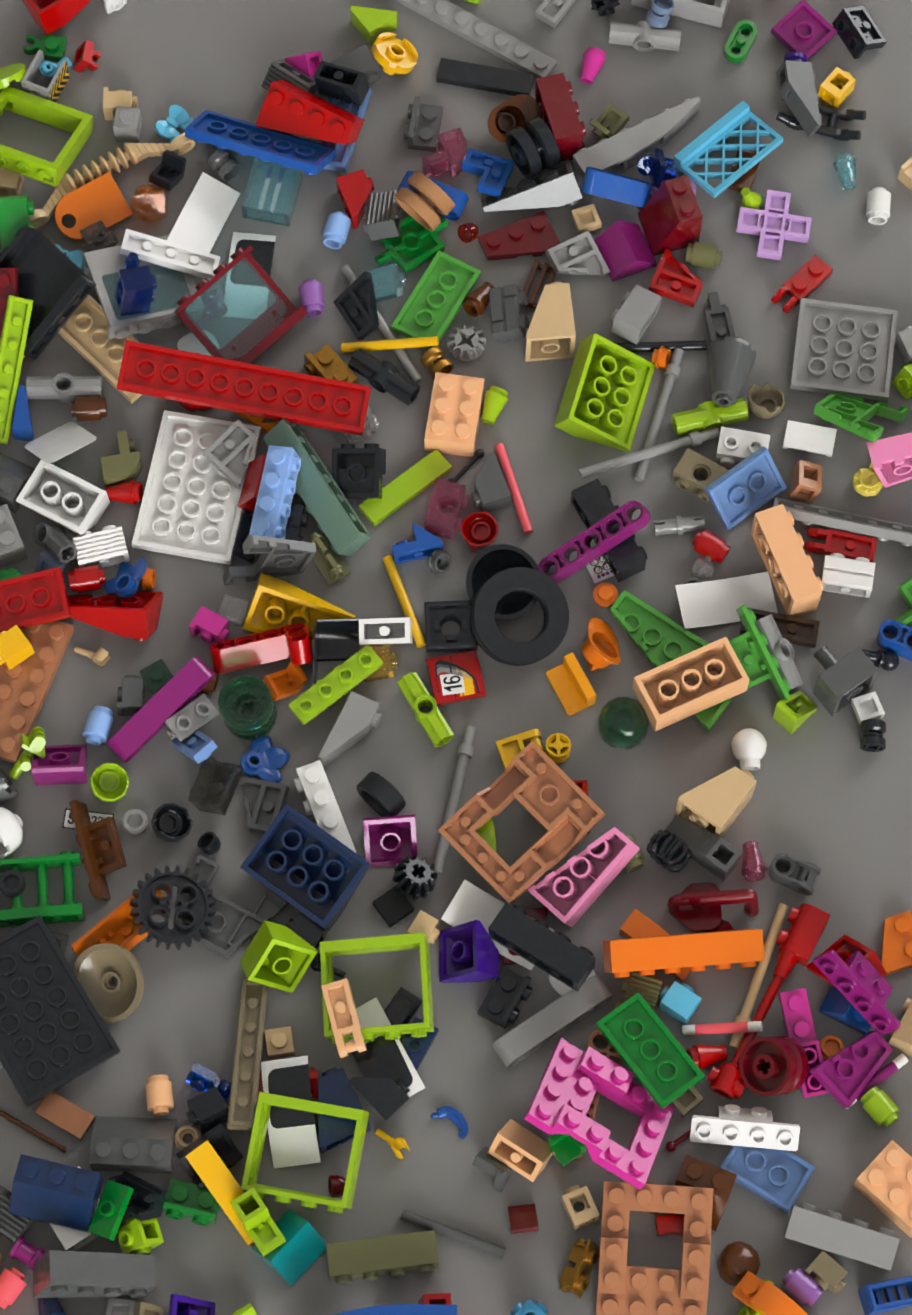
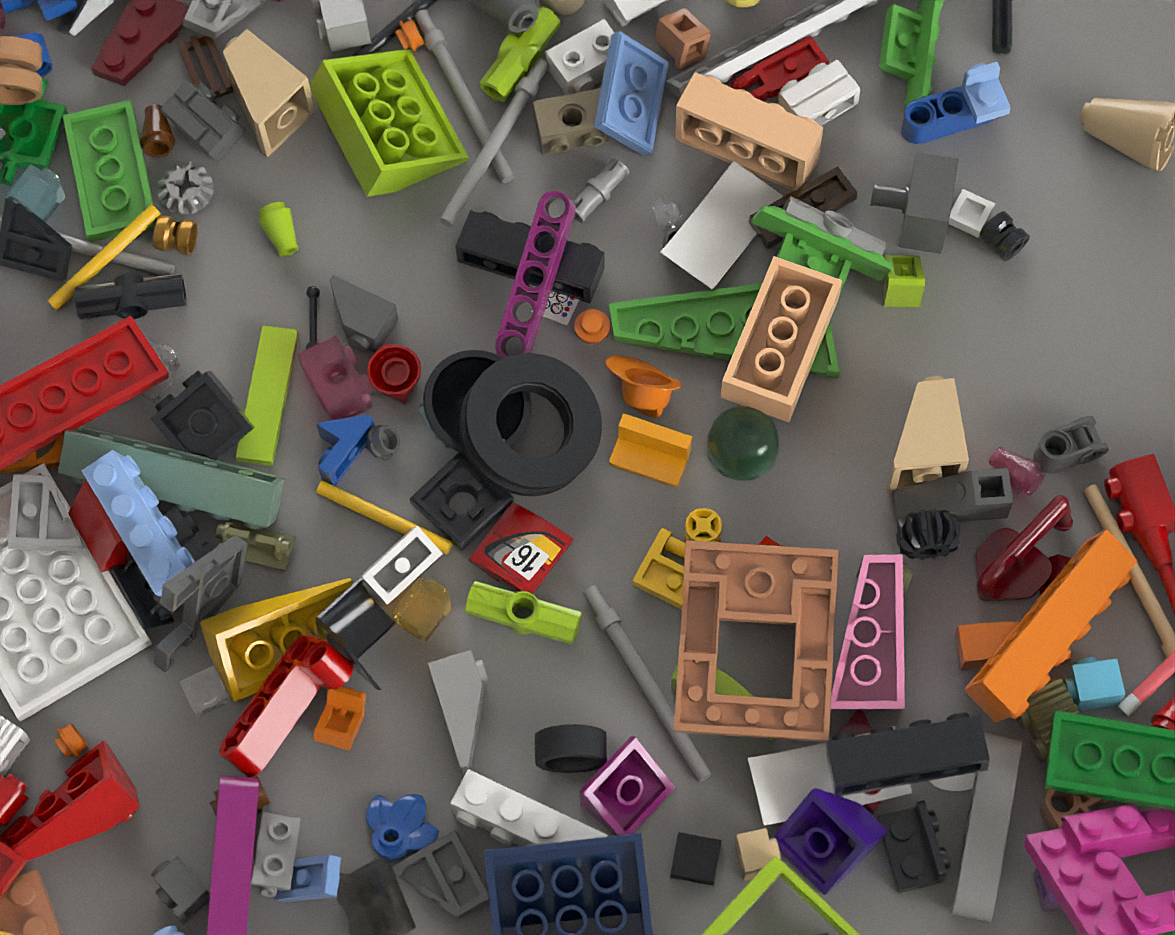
camera: 40 degrees left, 0 degrees up
(99, 658) = (100, 878): tan hand -> none
(127, 579) = (49, 761): blue plate -> none
(156, 675) = (187, 840): clear green plate -> none
(209, 626) = (196, 731): dark pink brick -> none
(246, 694) = (314, 768): clear green wheel -> none
(328, 365) = (55, 334): pearl gold bracket -> none
(335, 684) = (403, 671): lime bracket -> none
(415, 877) = (692, 805): black gear -> none
(454, 414) = (248, 272): light nougat brick -> none
(464, 231) = (69, 72): clear red hinge -> none
(513, 488) = (403, 307): coral bar -> none
(710, 545) = (651, 182): red brick -> none
(749, 748) = (897, 356): white piece -> none
(886, 660) = (937, 146): black bar -> none

